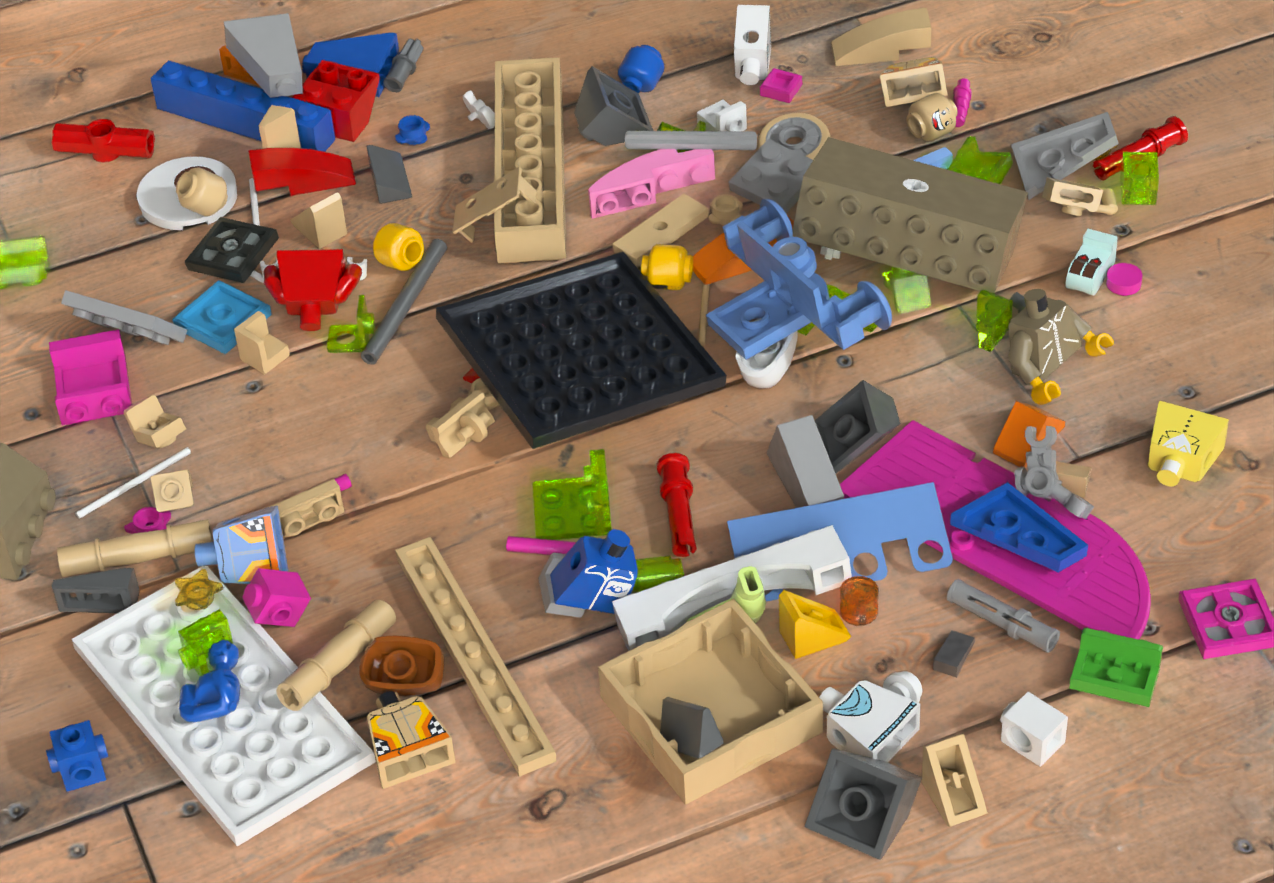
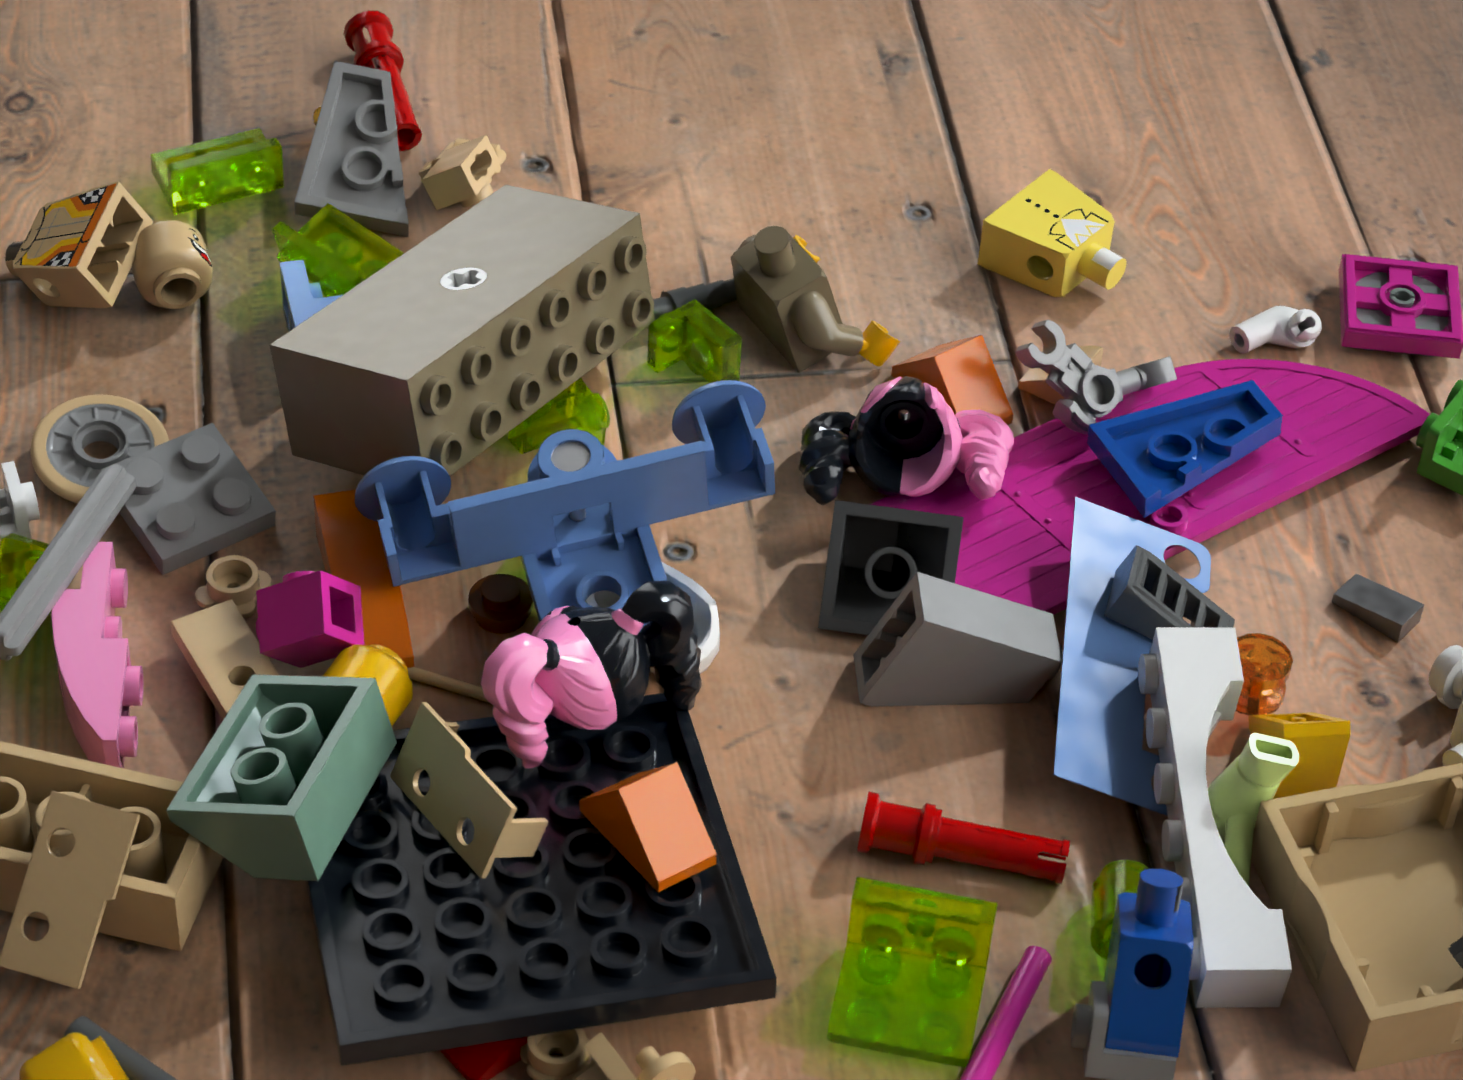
camera: 80 degrees left, 0 degrees up
(579, 243) = (286, 773): none -> sand green slope
(609, 373) = (653, 825): none -> orange slope
(629, 285) = (461, 792): none -> tan piece
(689, 318) = (592, 666): none -> hair
(697, 228) = (309, 618): none -> dark pink brick
(883, 518) = (1153, 595): none -> dark grey slope
(952, 416) = (904, 451): none -> hair
(1020, 111) = (218, 170): none -> clear neon green bracket
(1040, 635) = (1382, 498): light grey pin -> none
(1092, 262) = (604, 184): light aqua leg -> none
(1124, 279) = (660, 191): dark pink tile -> none
(1139, 178) = (458, 99): clear neon green brick -> none
(1175, 564) = (1276, 326): none -> white arm

